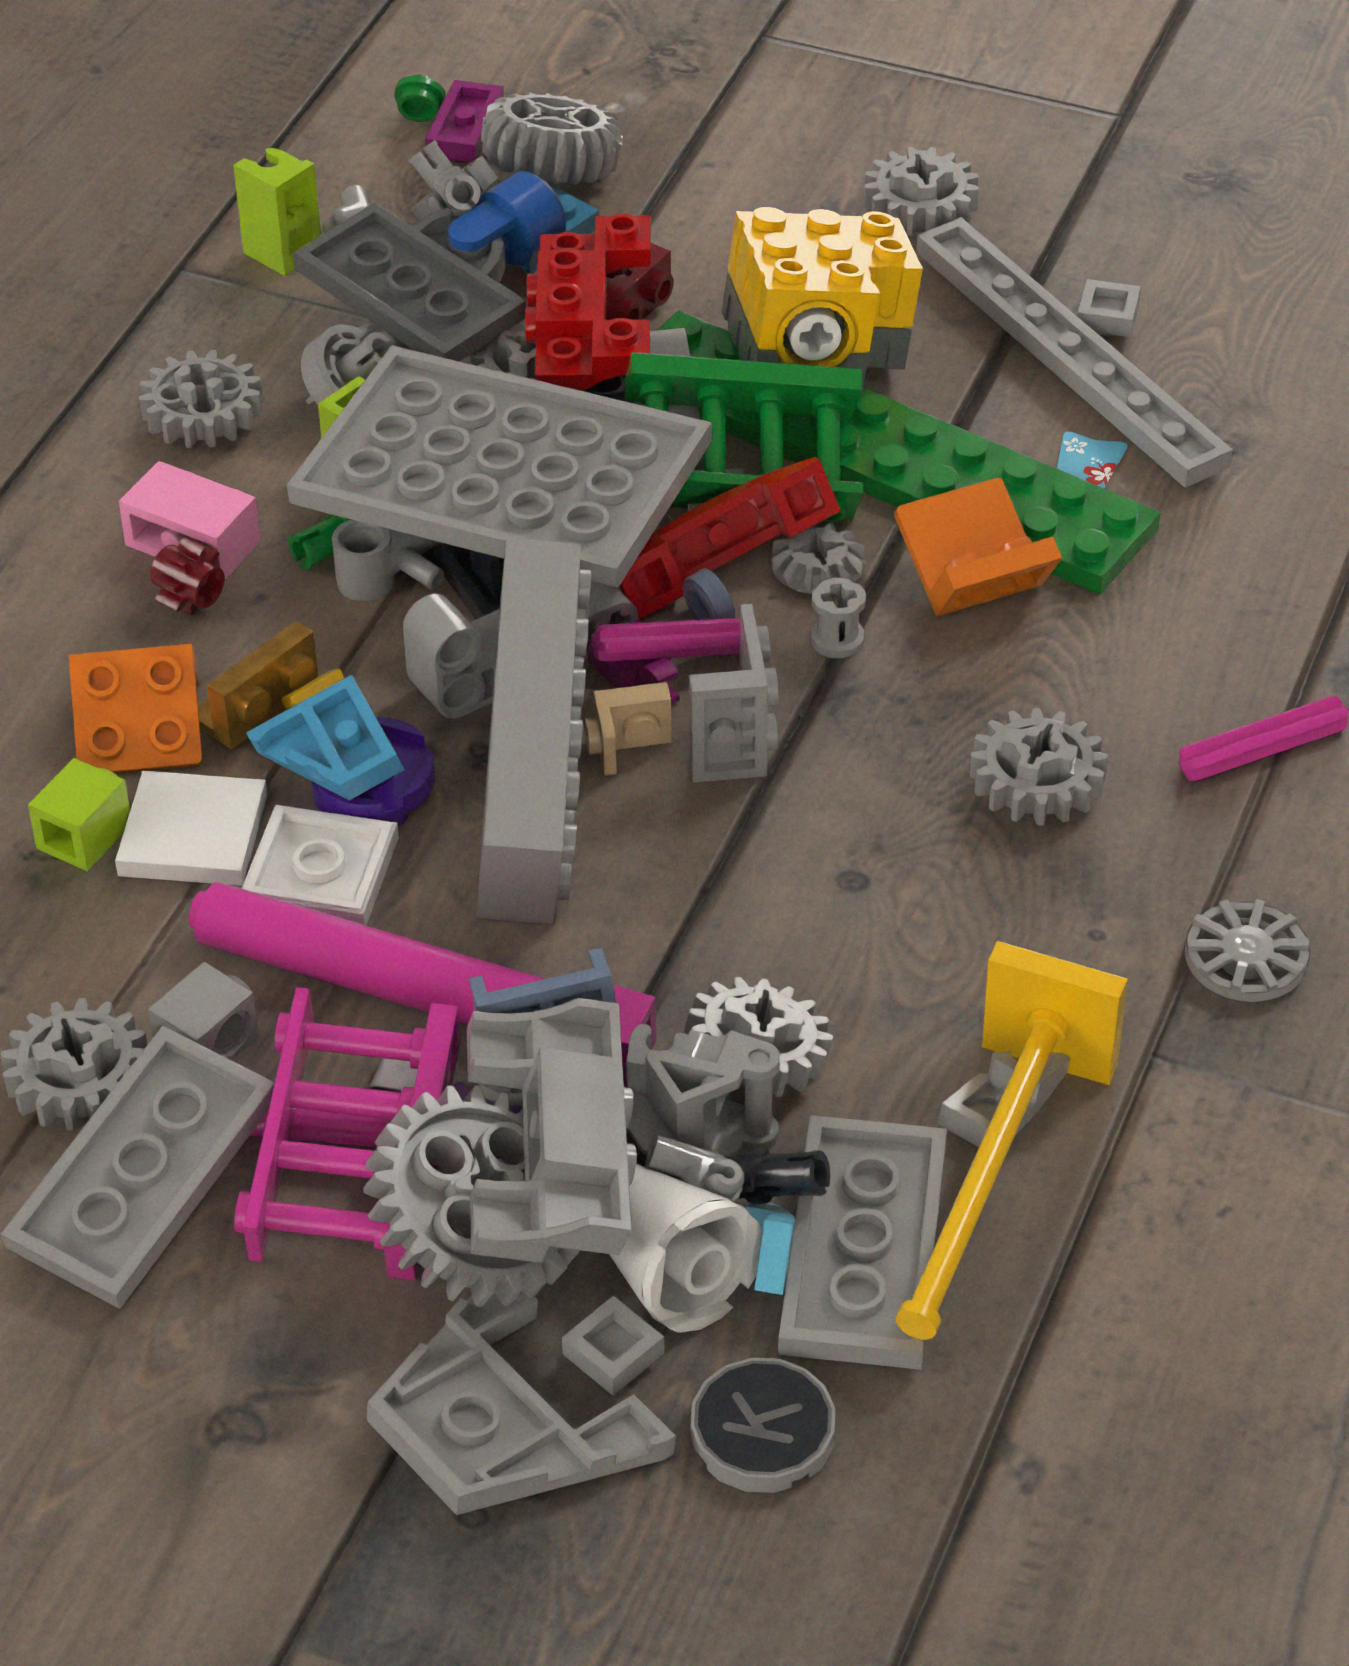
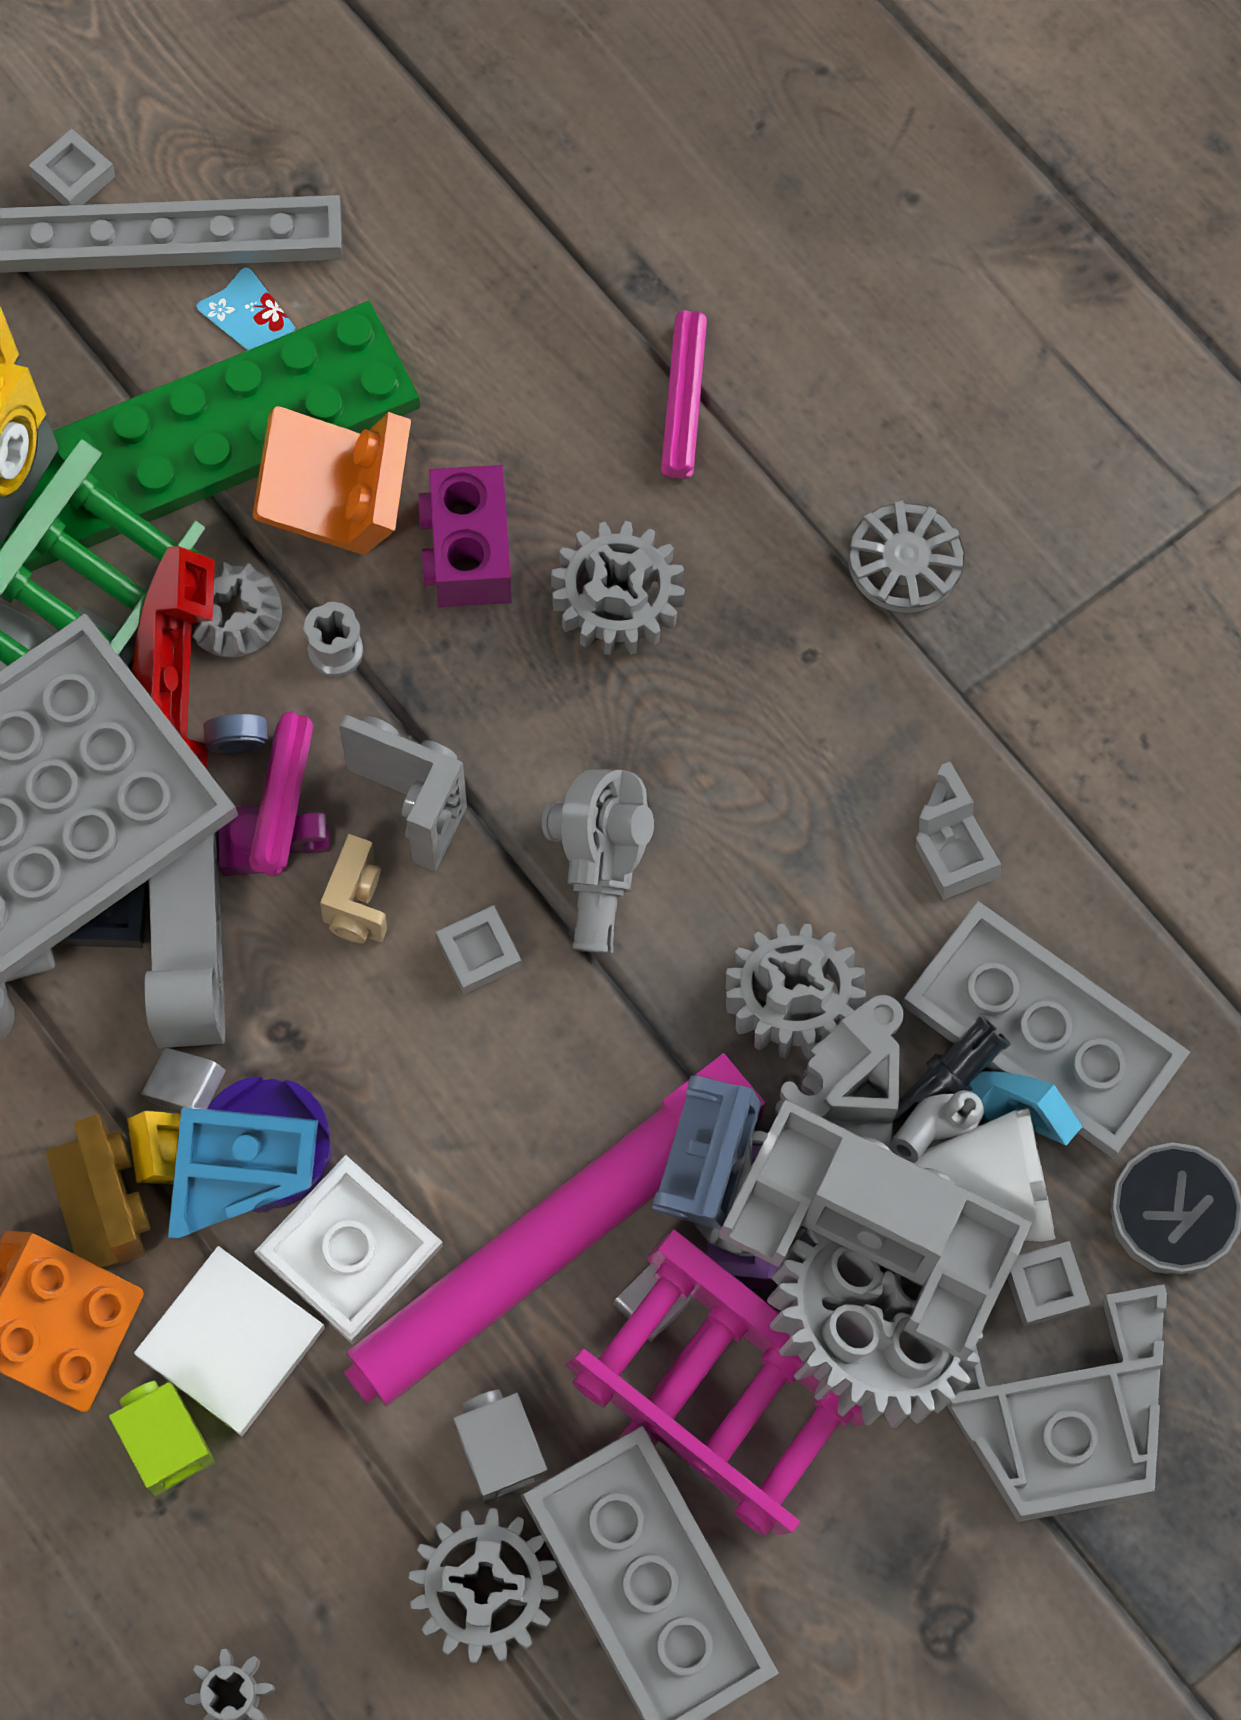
camera: 65 degrees left, 25 degrees up
(390, 698) = (183, 1081): none -> flat silver piece
(534, 733) = (359, 984): light grey brick -> none
(637, 824) = (478, 949): none -> light grey plate
(786, 847) = (601, 846): none -> light grey pin
(1002, 657) = (476, 536): none -> magenta brick
(1030, 1011) = (929, 755): yellow tile -> none

